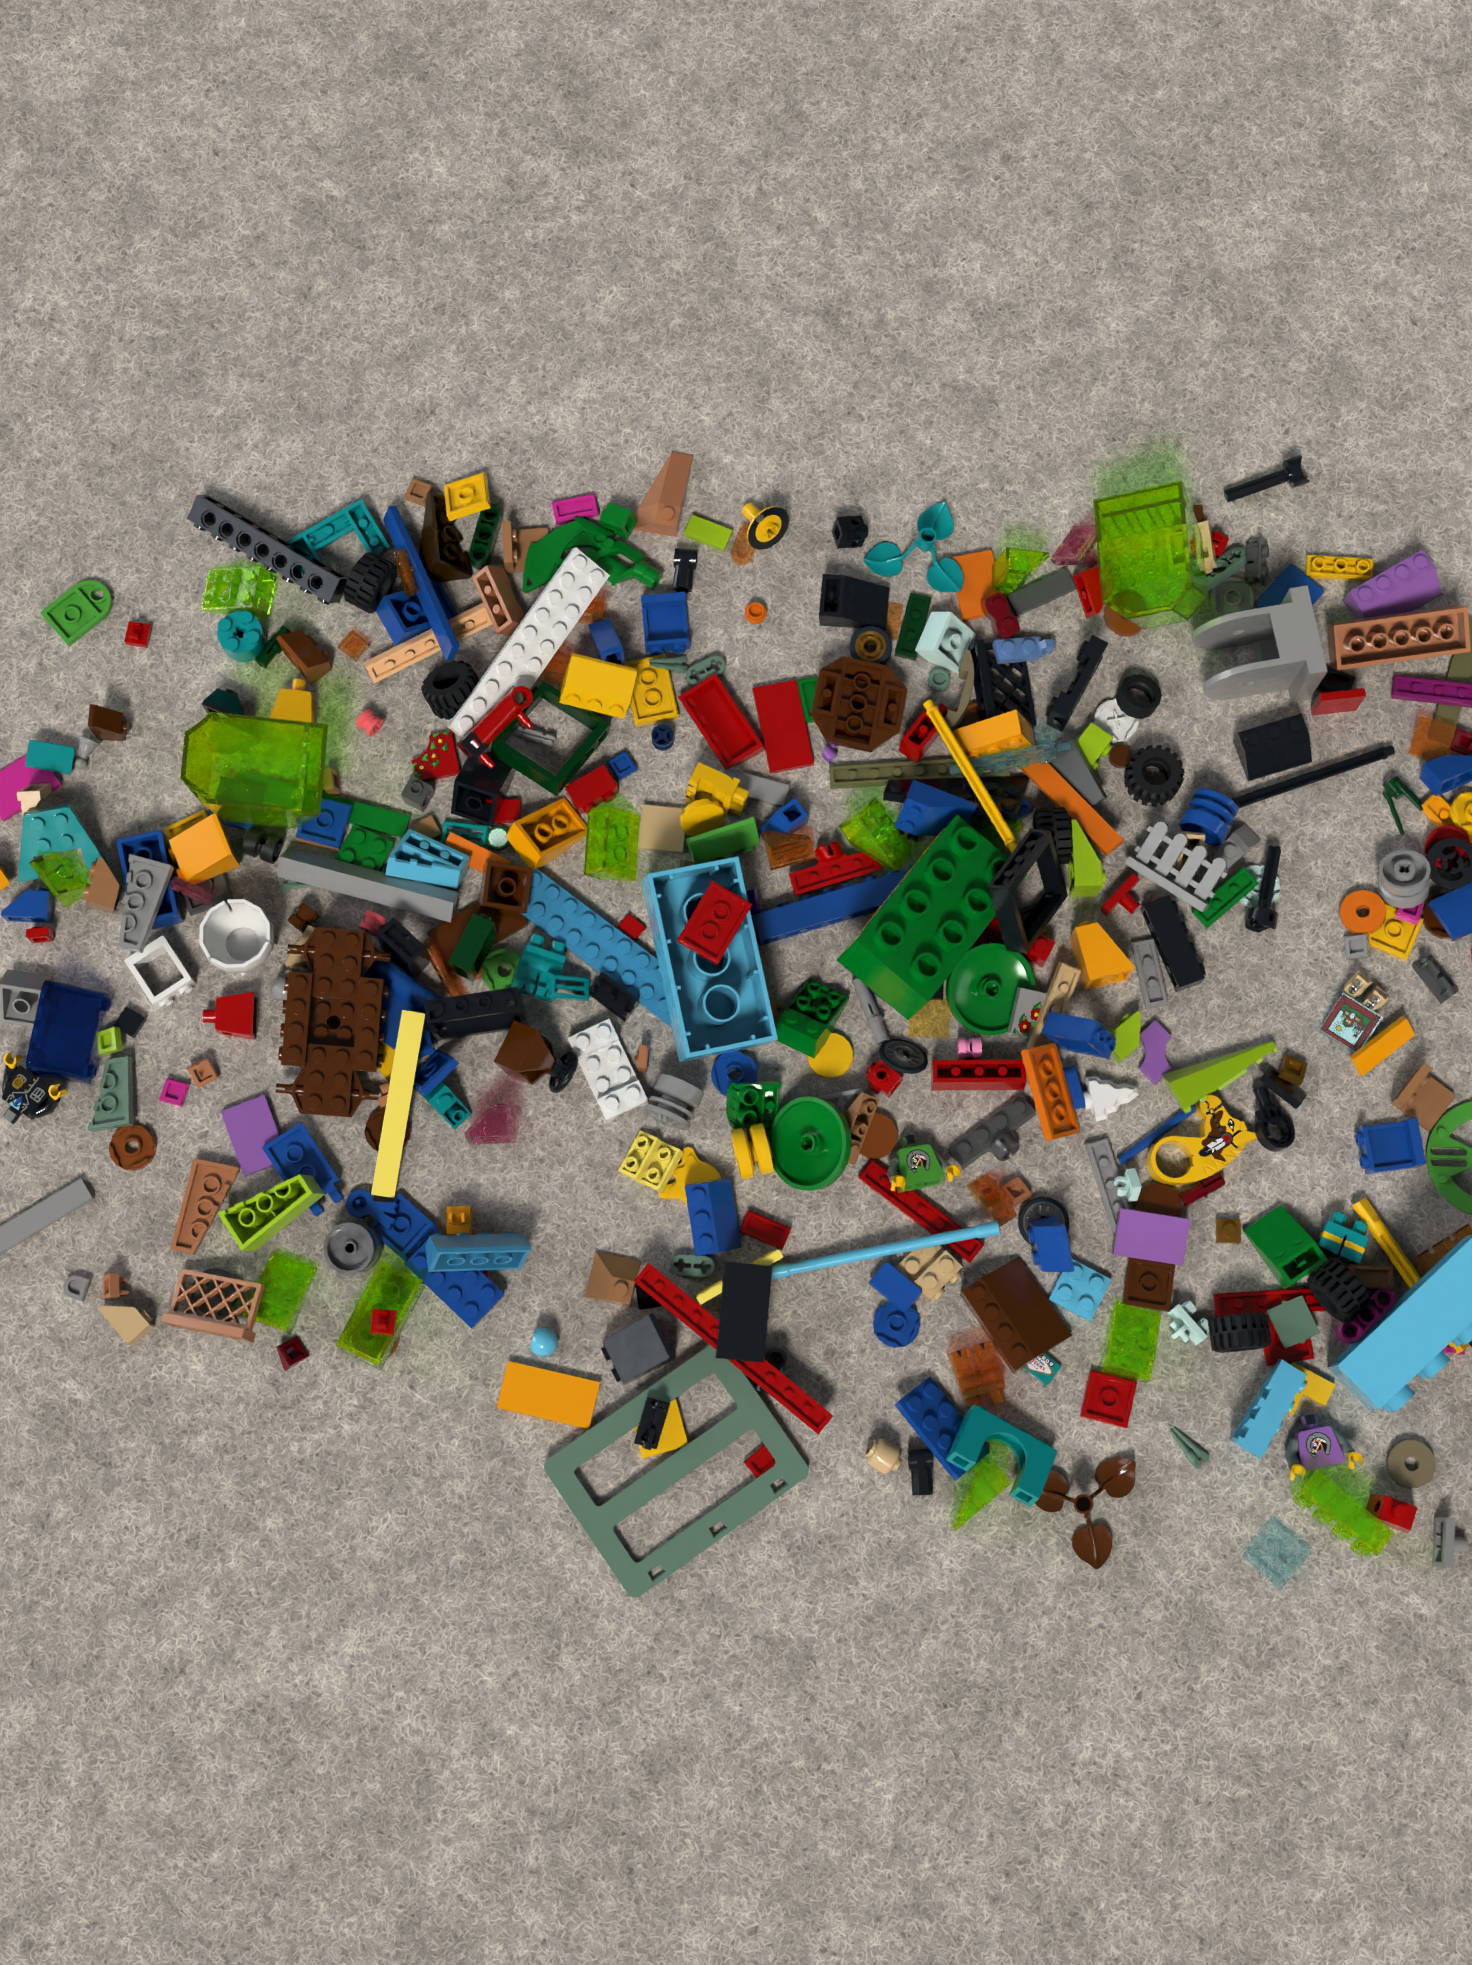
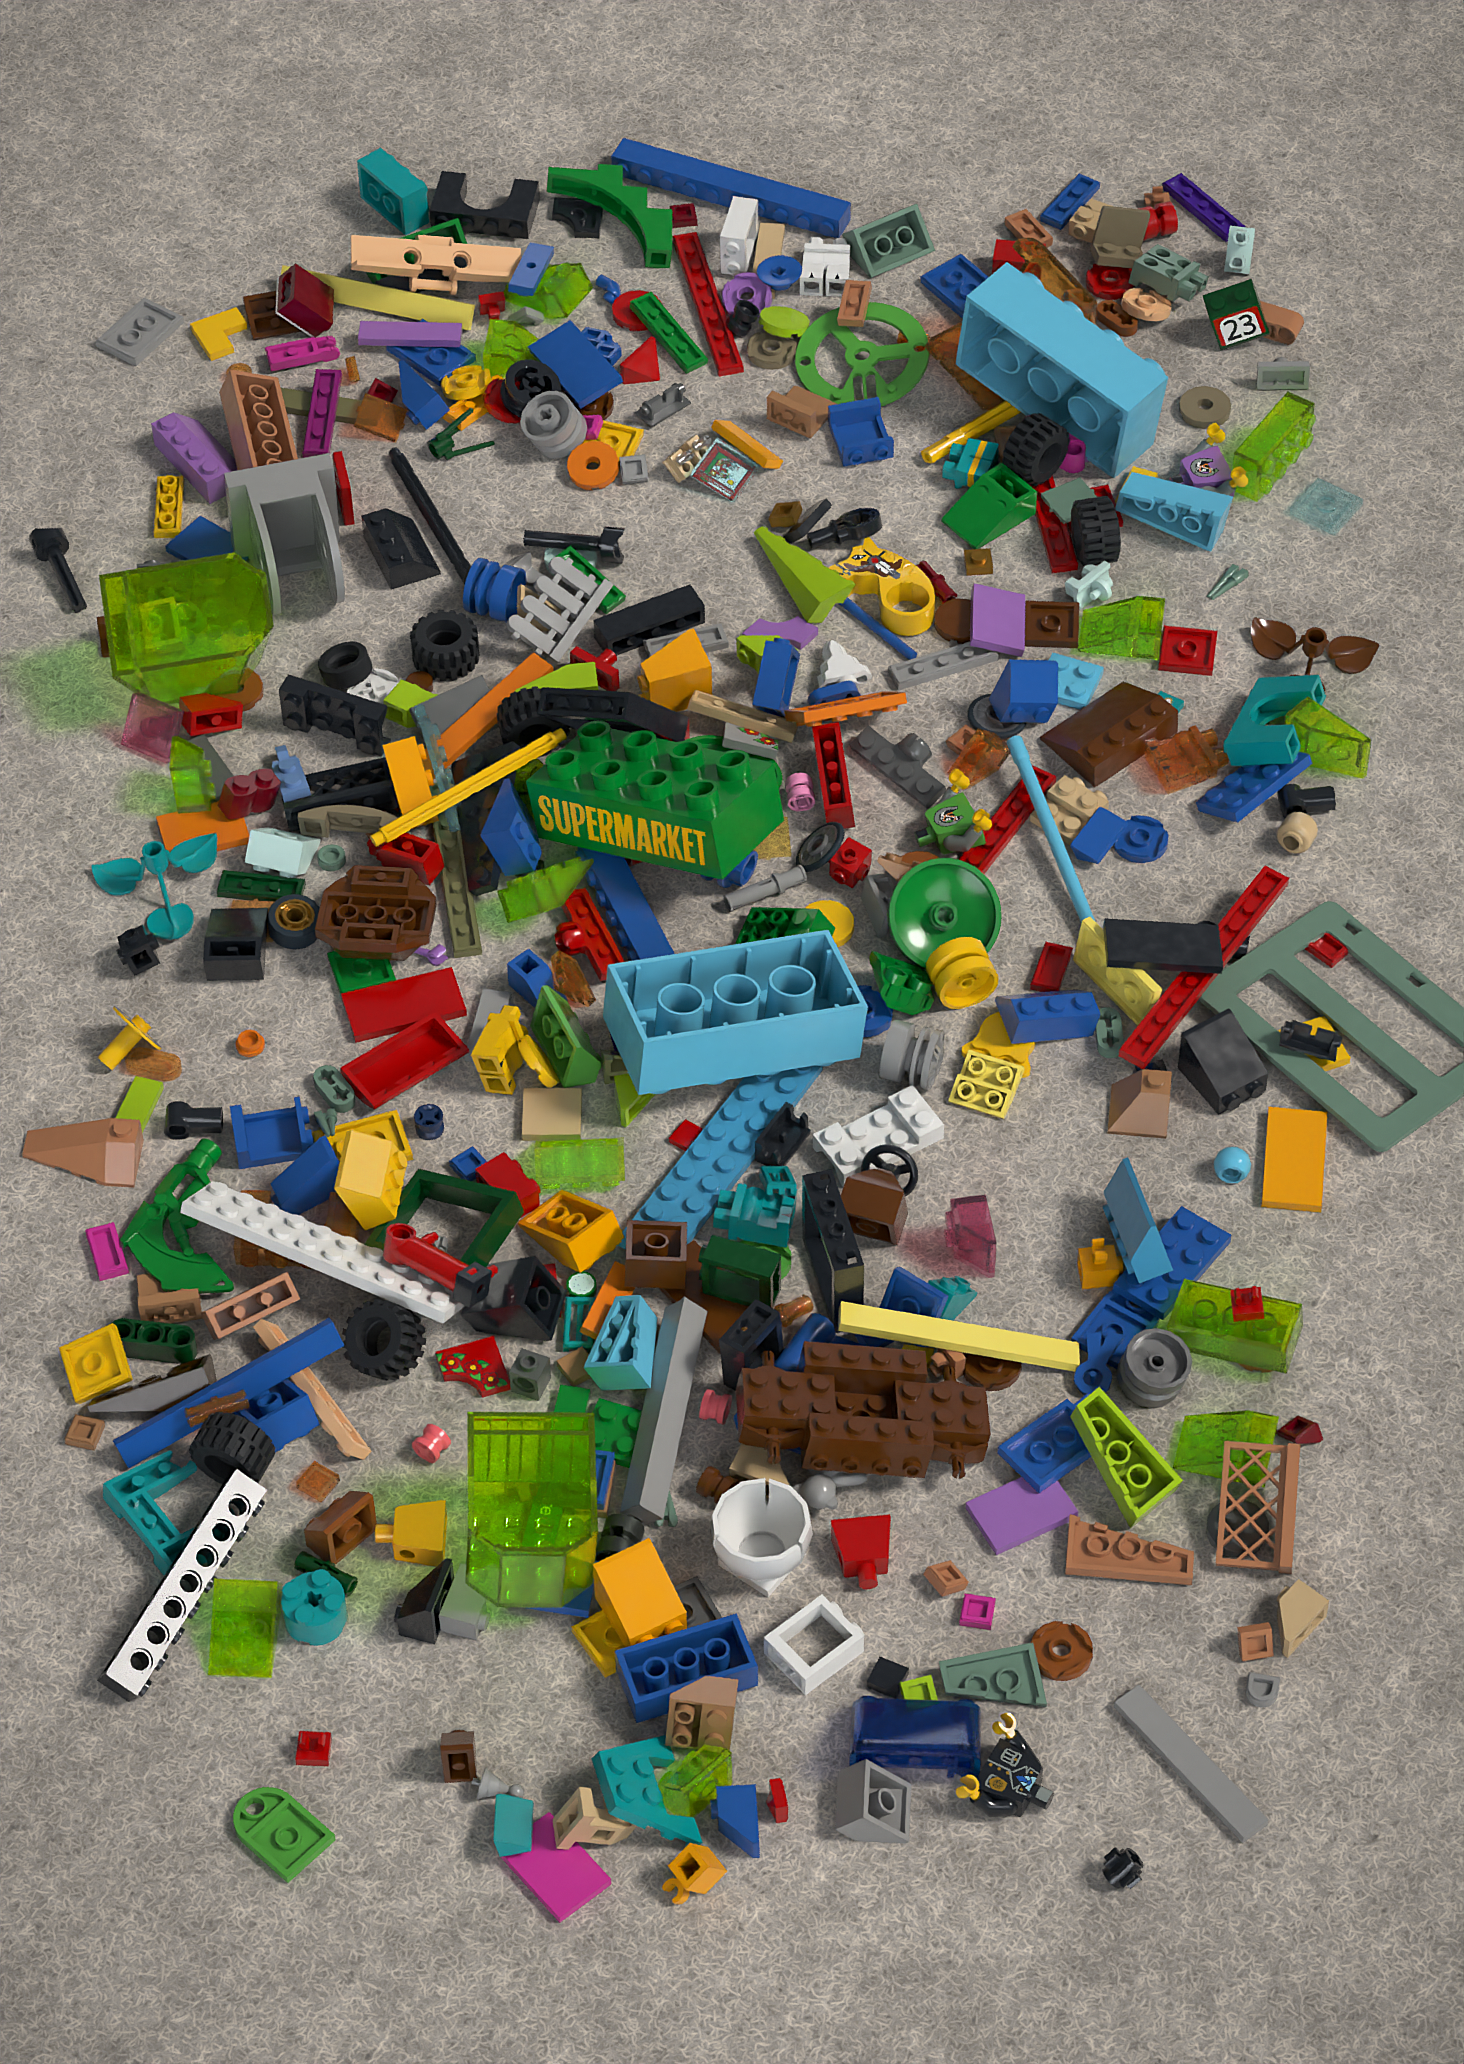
camera: 95 degrees left, 25 degrees down
(145, 892) = (716, 1648): light grey wing -> none
(192, 890) = (697, 1607): clear pink axle -> none
(618, 520) = (126, 1193): green brick -> none
(642, 1058) = (858, 1100): nougat tile -> none
(714, 922) = (696, 980): red tile -> none
(1130, 1183) = (942, 637): light aqua tile -> none
(1392, 1512) = (1262, 399): red torso -> none

